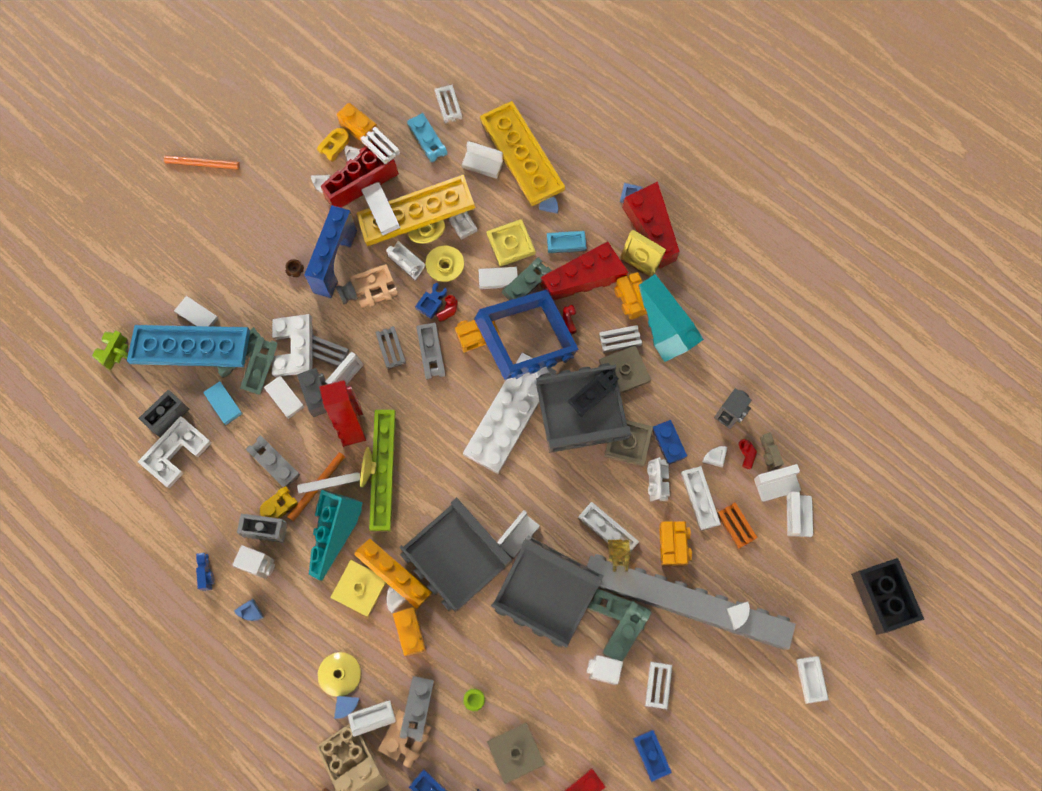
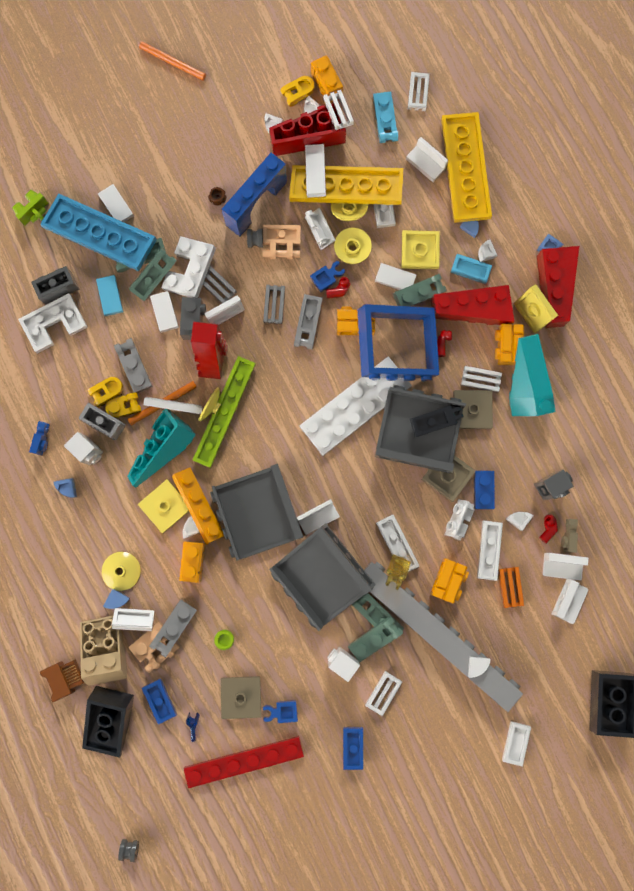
camera: 20 degrees right, 10 degrees up
(260, 491) = (112, 387): none -> yellow plate
(567, 748) = (285, 712): none -> blue plate
(574, 220) = (486, 251): none -> white tile

